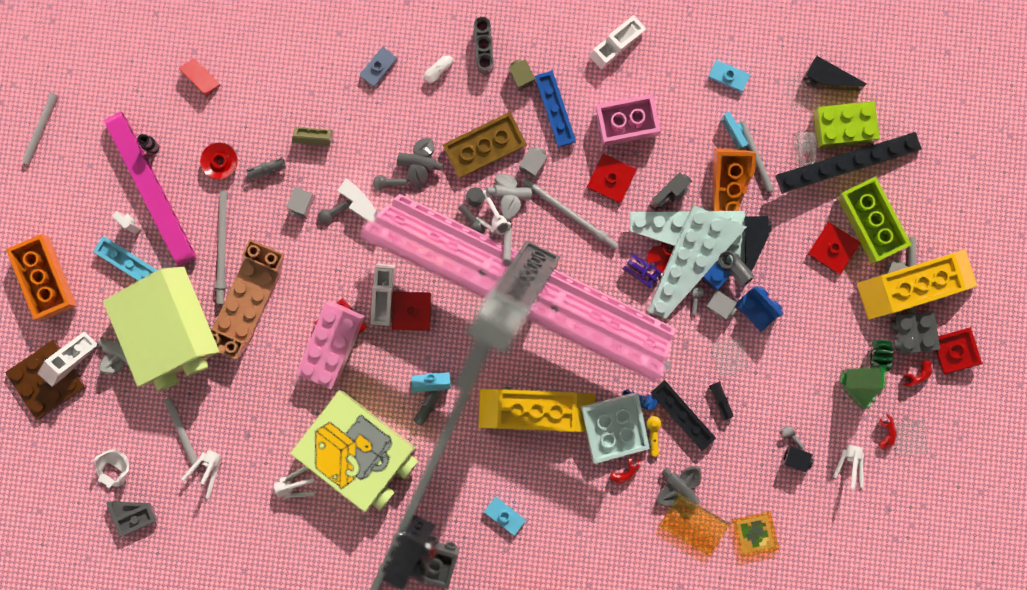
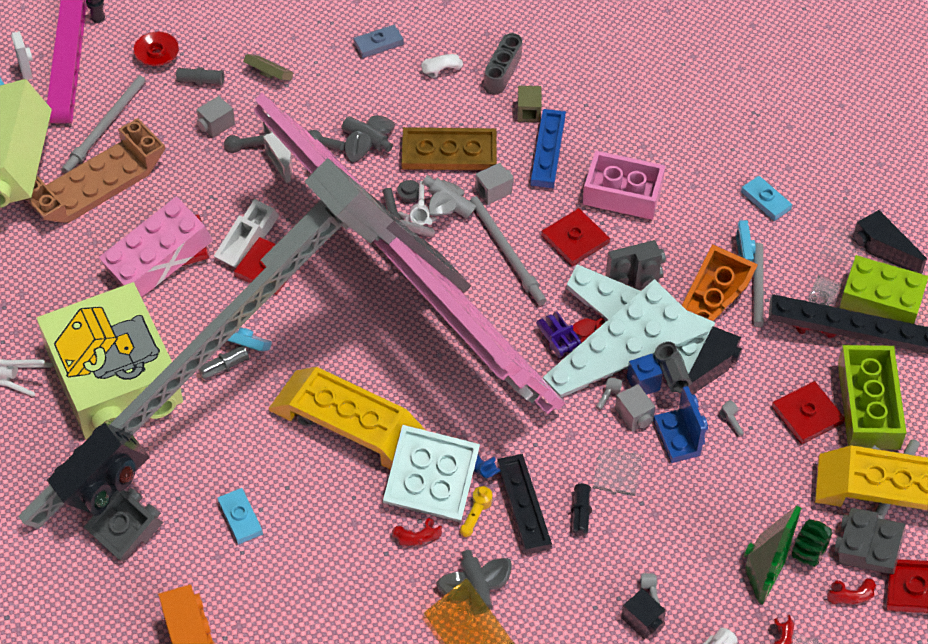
camera: 20 degrees right, 30 degrees down
(617, 42) = (652, 117): white slope -> none
(781, 275) = (727, 413): none -> light grey hand

